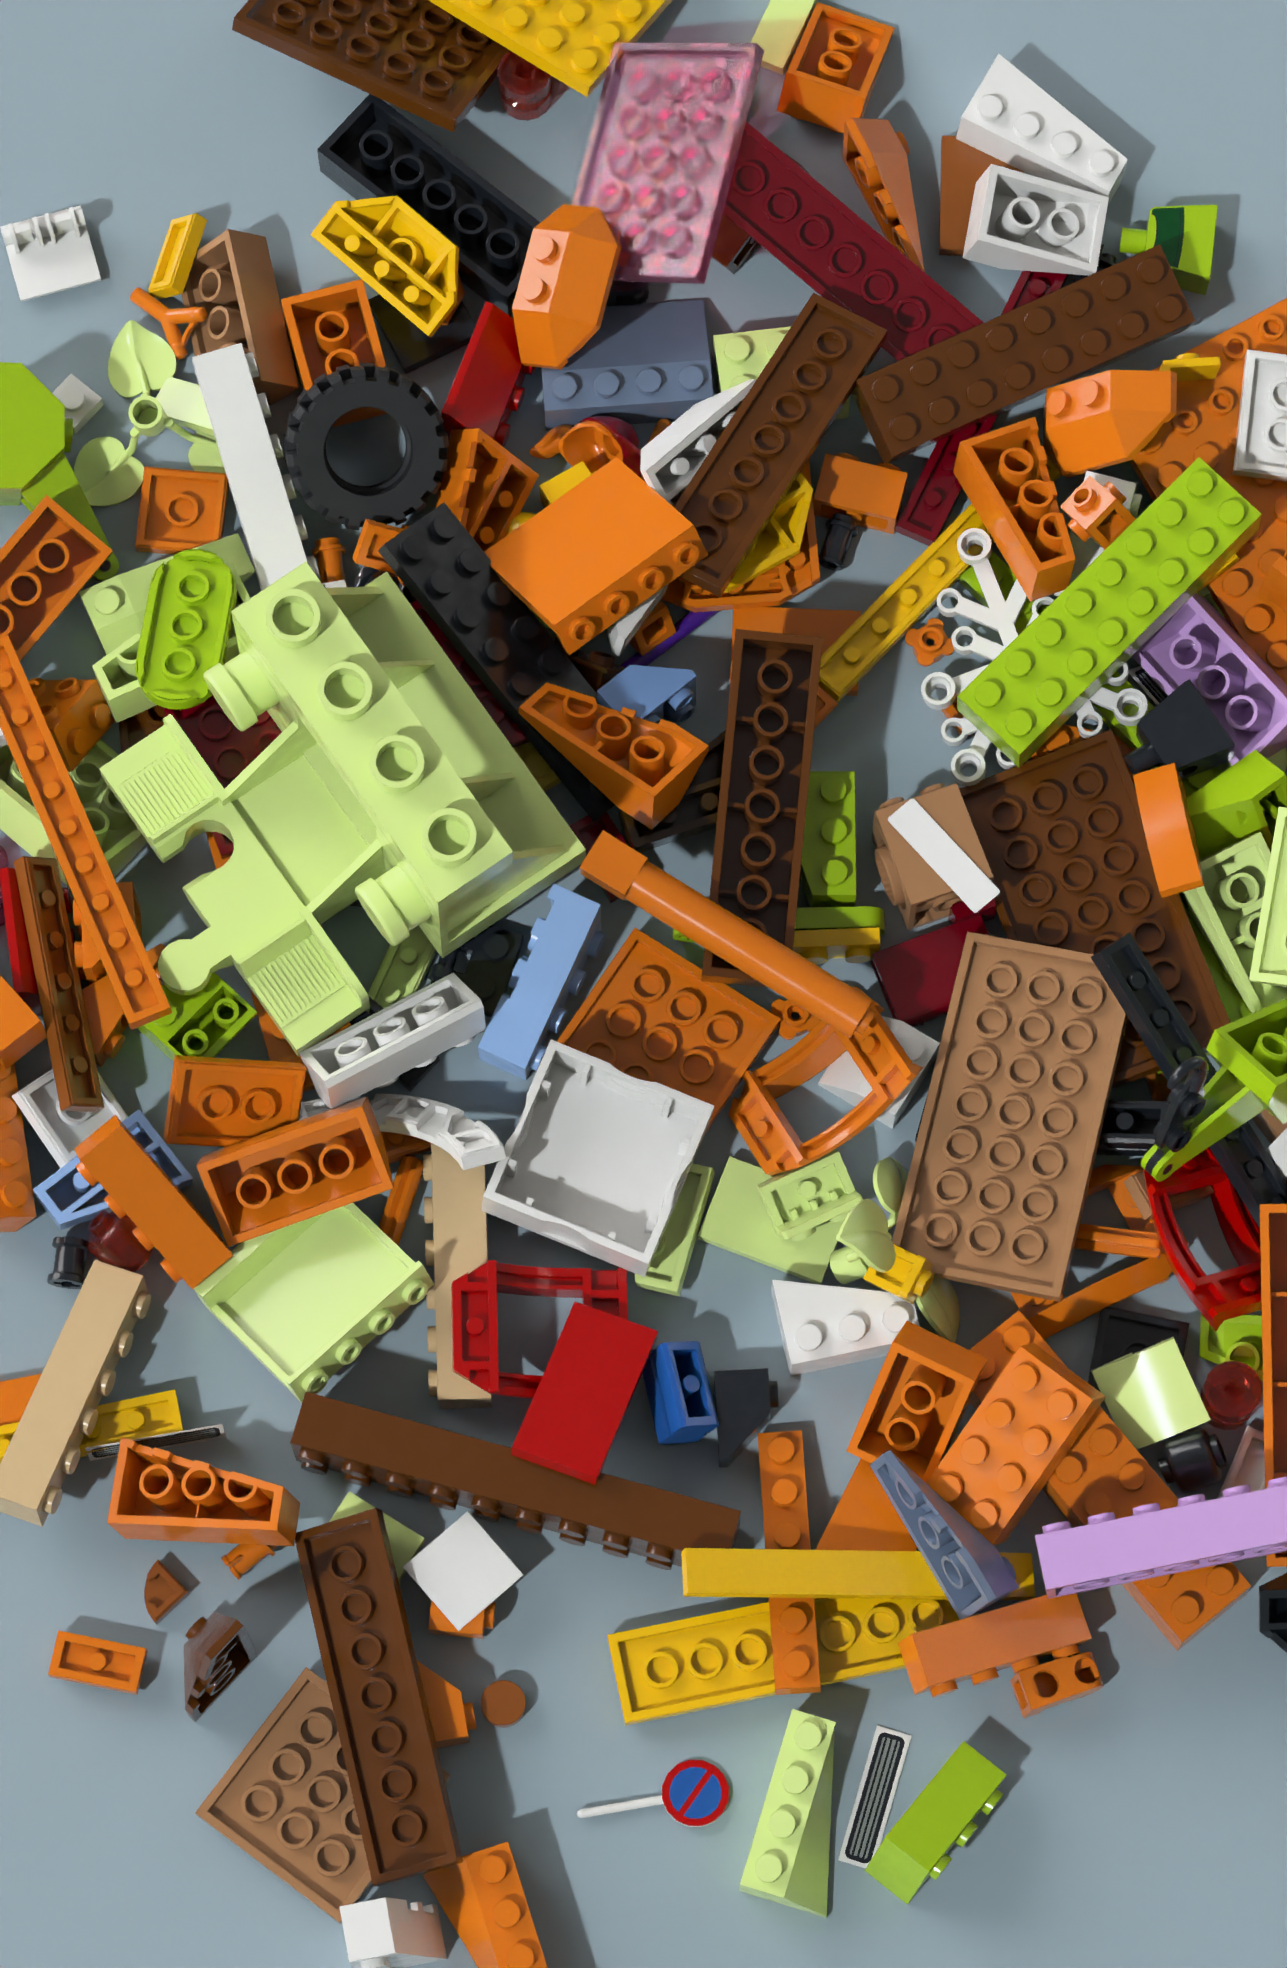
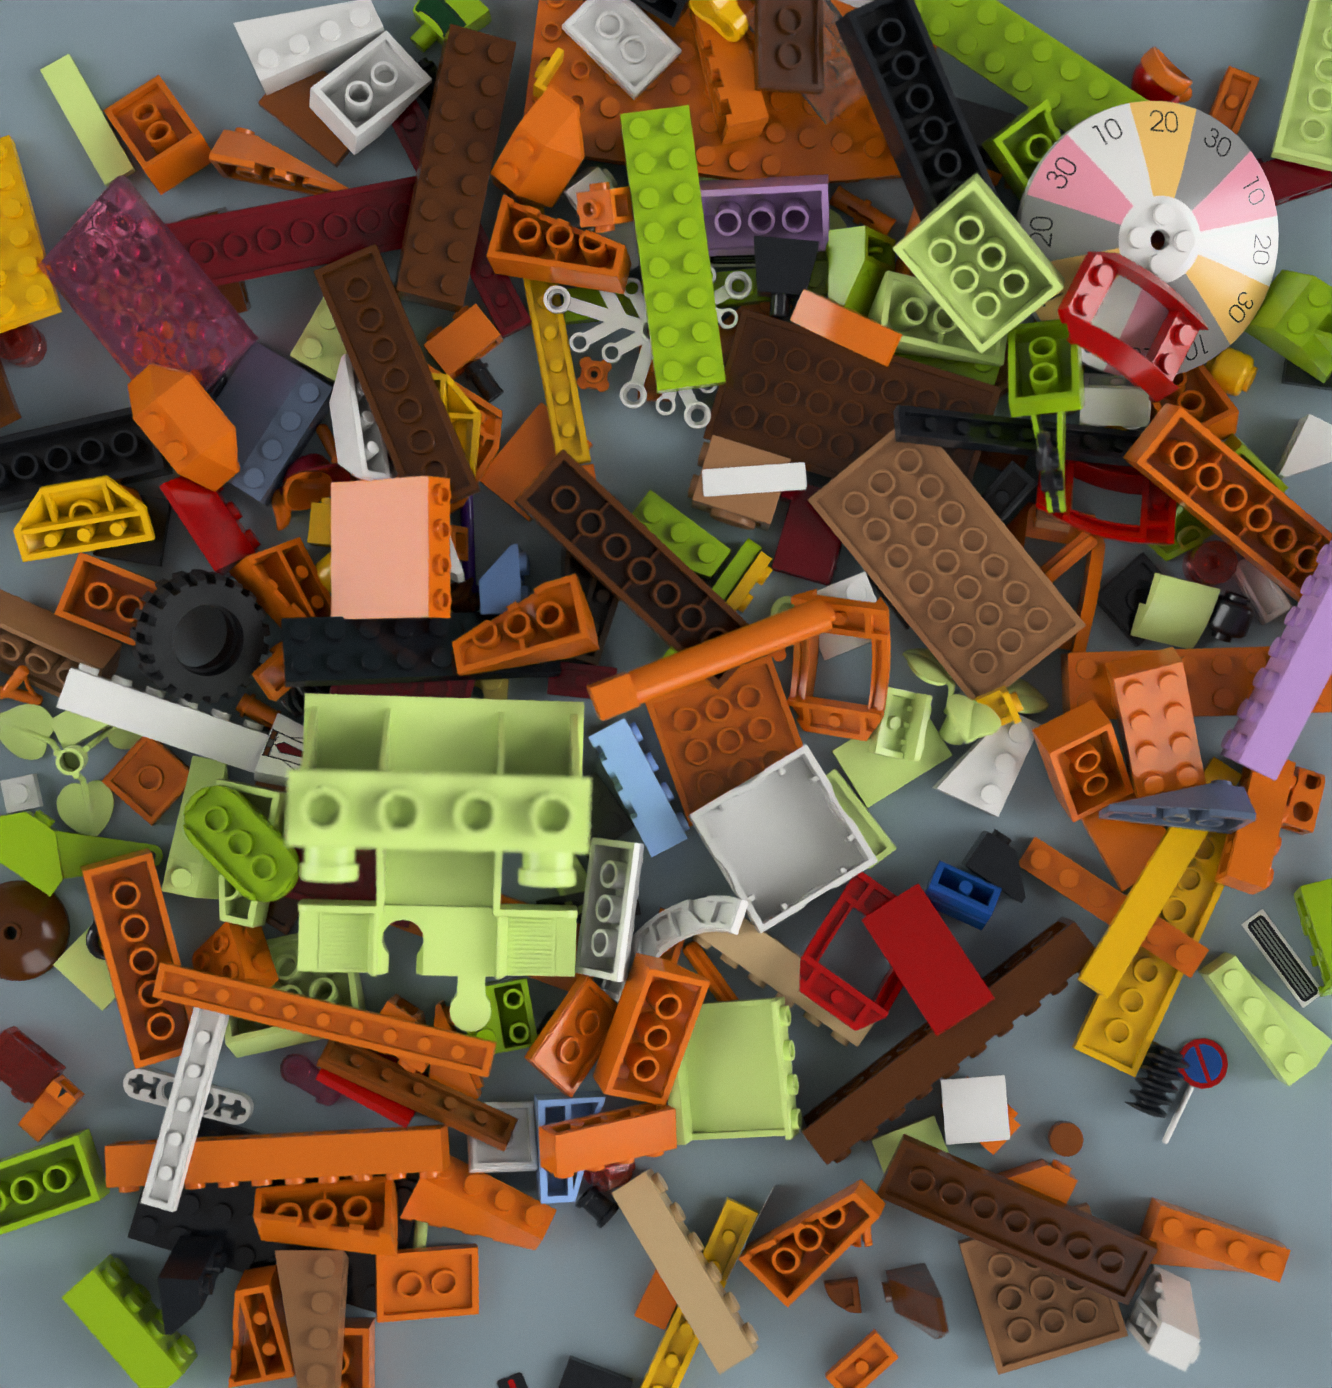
camera: 55 degrees left, 15 degrees up
(640, 1749) = (1158, 1081): none -> black piece

